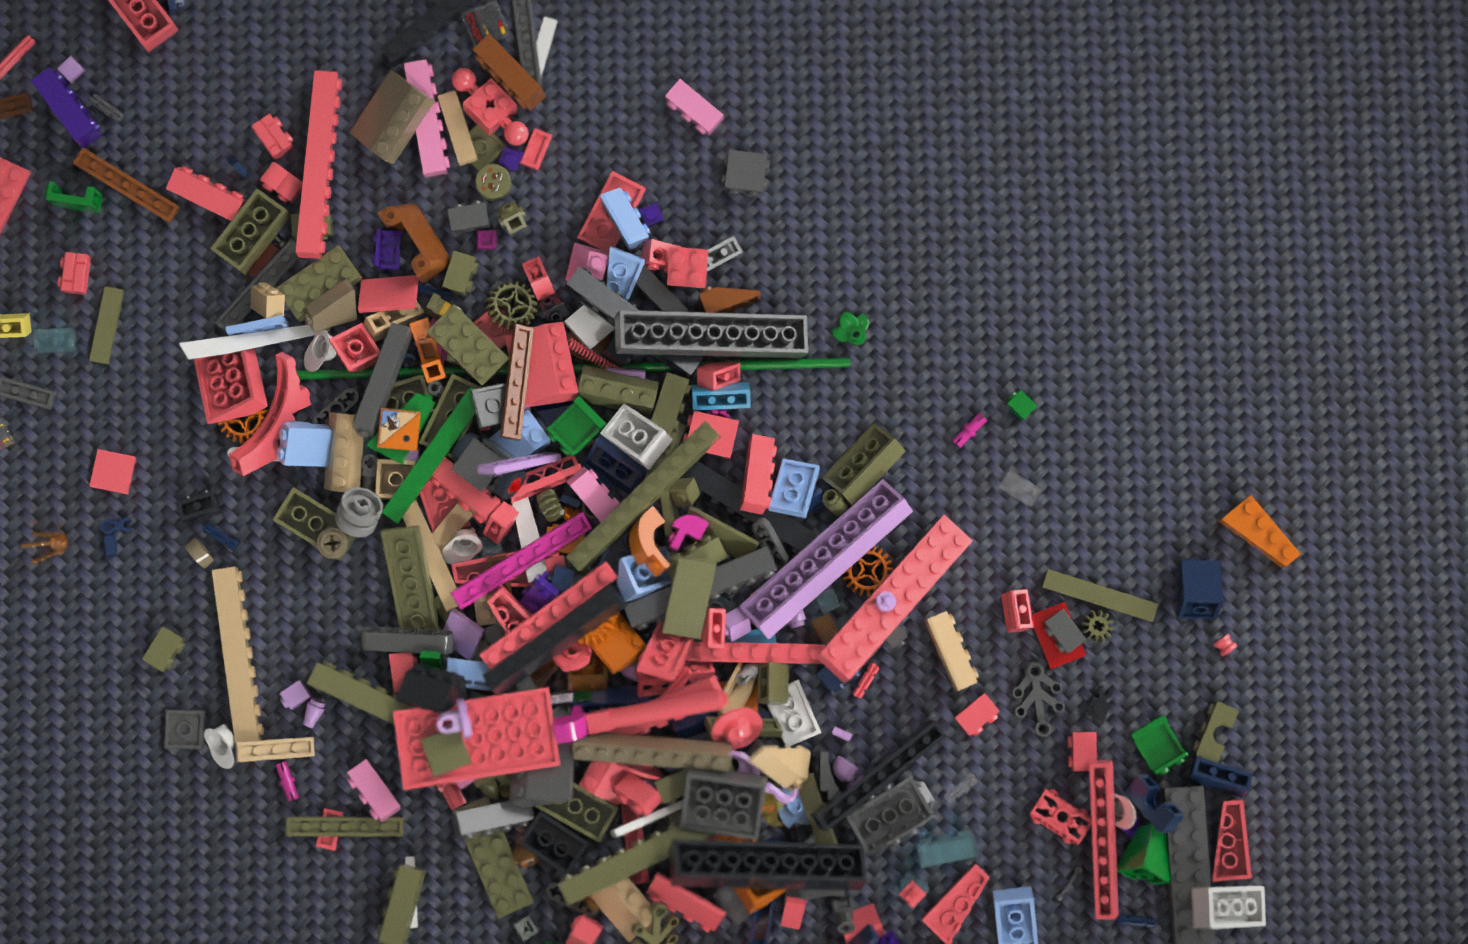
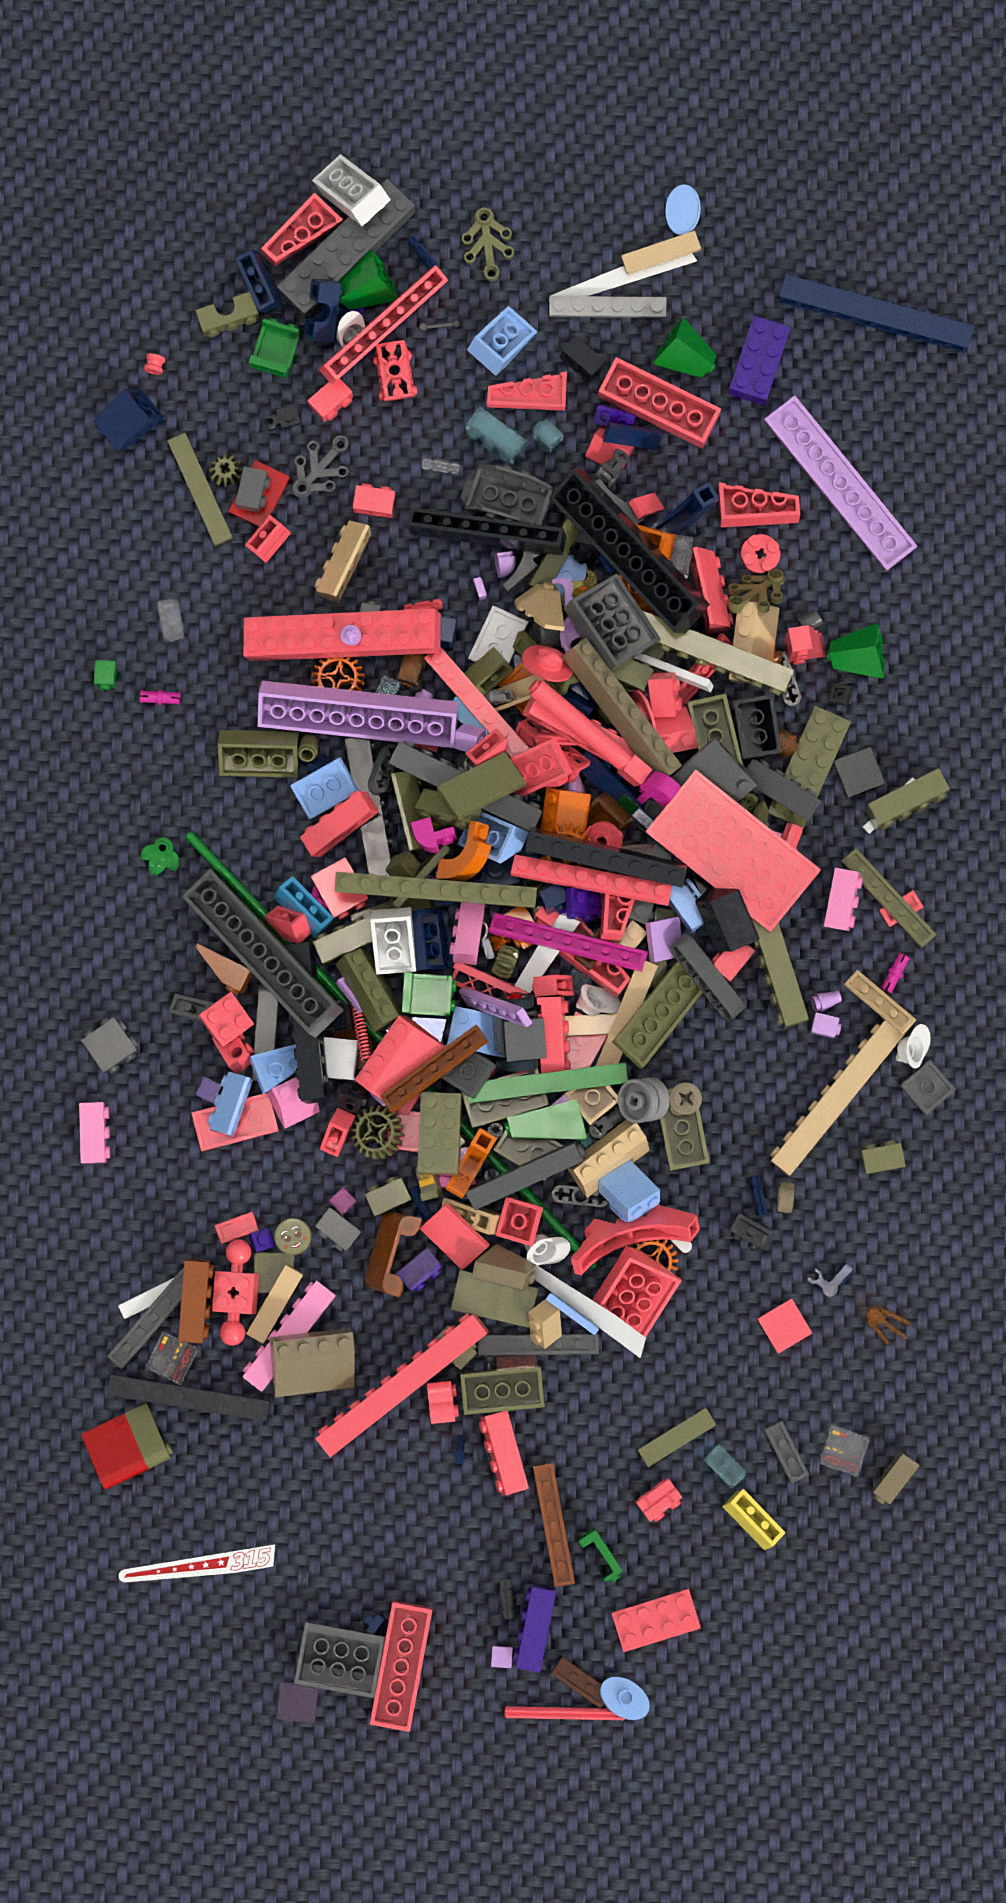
camera: 125 degrees left, 0 degrees up
(272, 136) = (411, 1444): coral brick -> none
(399, 429) = (552, 1123): tile -> none
(431, 659) = (704, 943): green tile -> none
(445, 752) = (763, 863): olive tile -> none
(455, 890) = (859, 772): none -> dark grey tile
(459, 720) = (731, 871): lavender tile -> none
(511, 217) = (308, 1195): olive brick -> none
(912, 893) = (552, 429): coral tile -> none
(1260, 531) = (42, 416): orange wedge -> none

